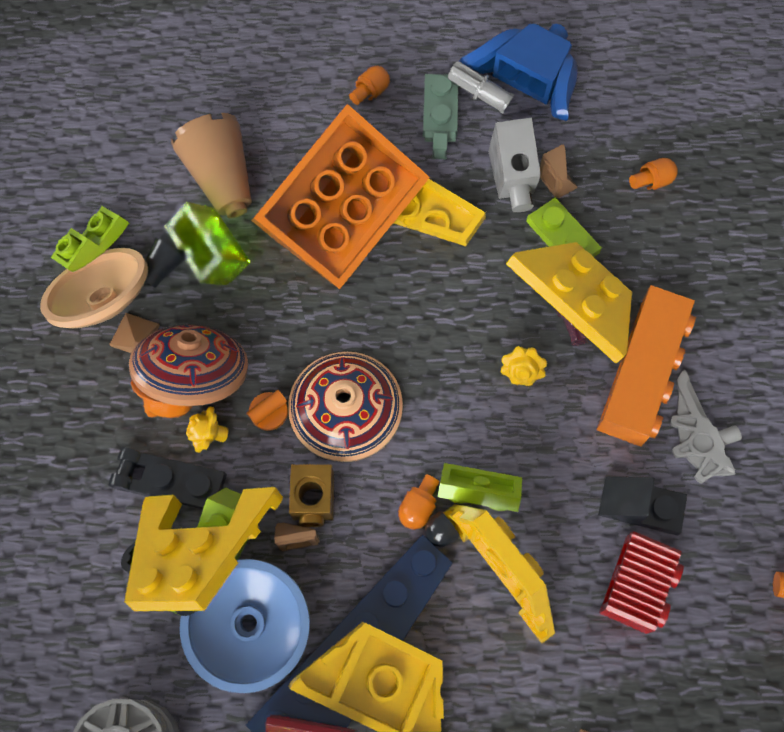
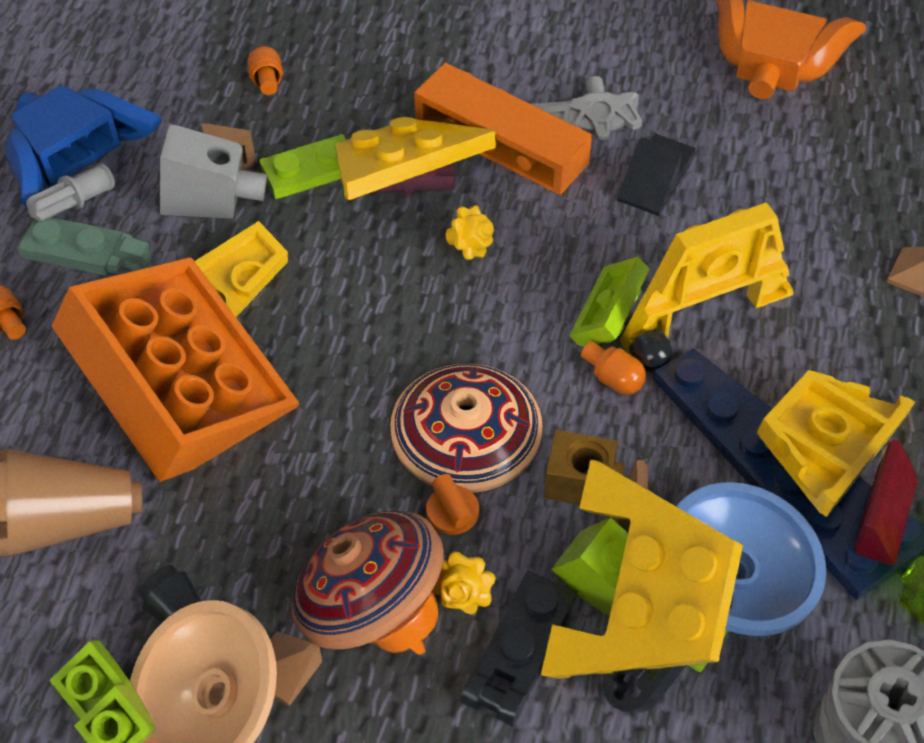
camera: 80 degrees left, 15 degrees down
(208, 244) = (185, 531): clear neon green brick -> none
(642, 583) = (736, 180): red brick -> none

